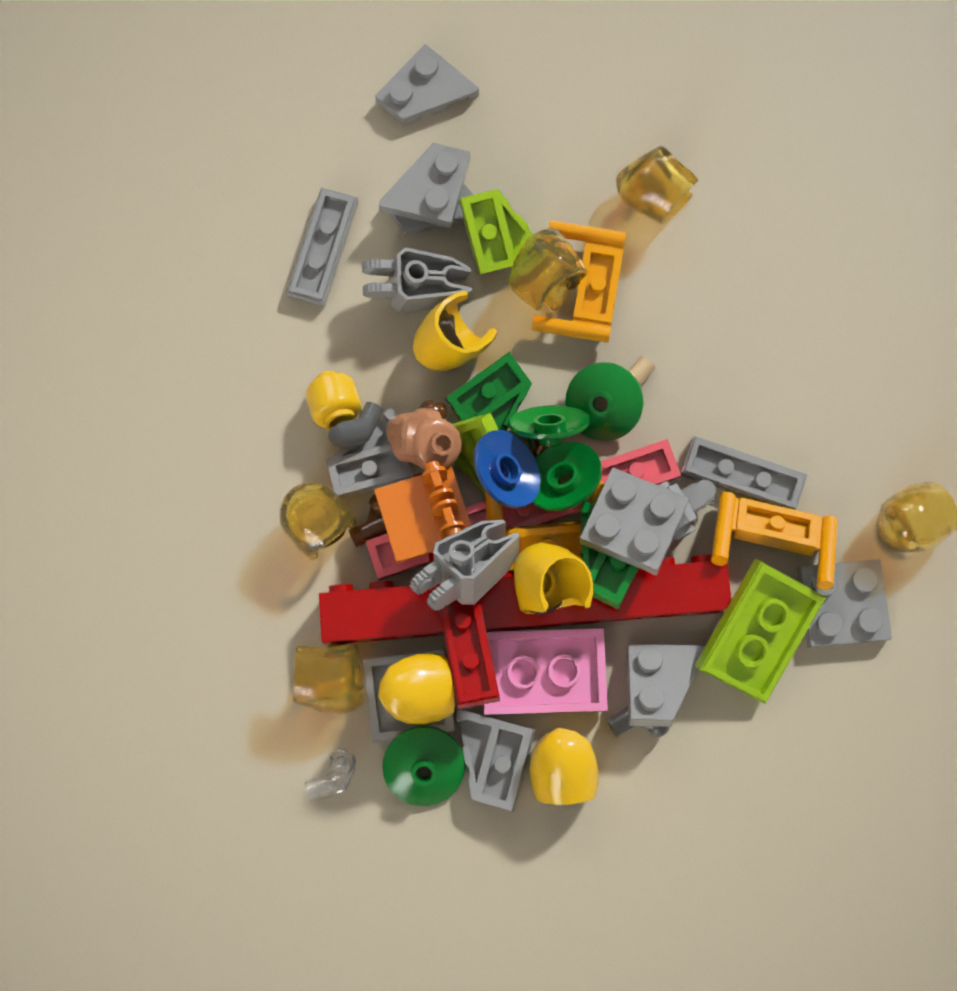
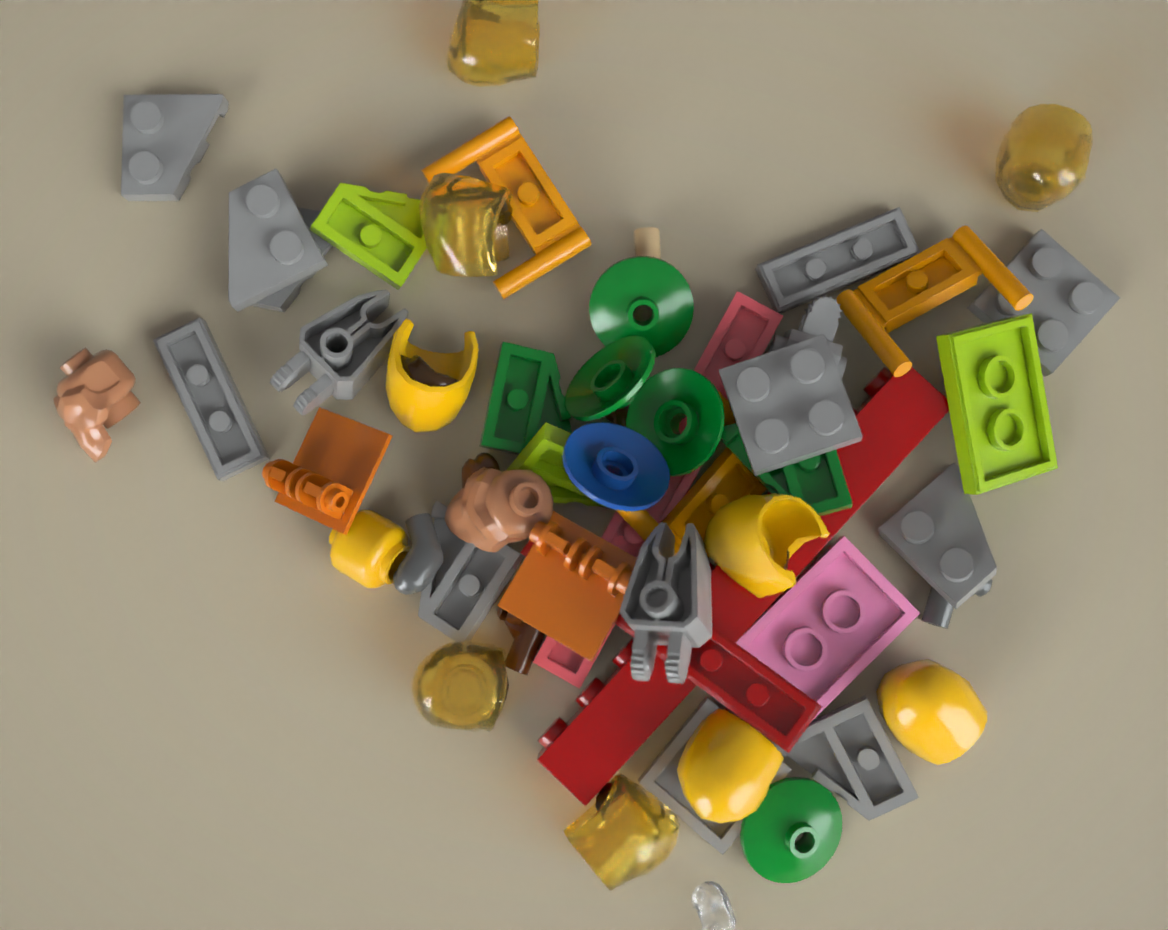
camera: 45 degrees left, 5 degrees up
(262, 191) = (93, 396): none -> nougat head
(350, 339) = (329, 470): none -> orange hinge

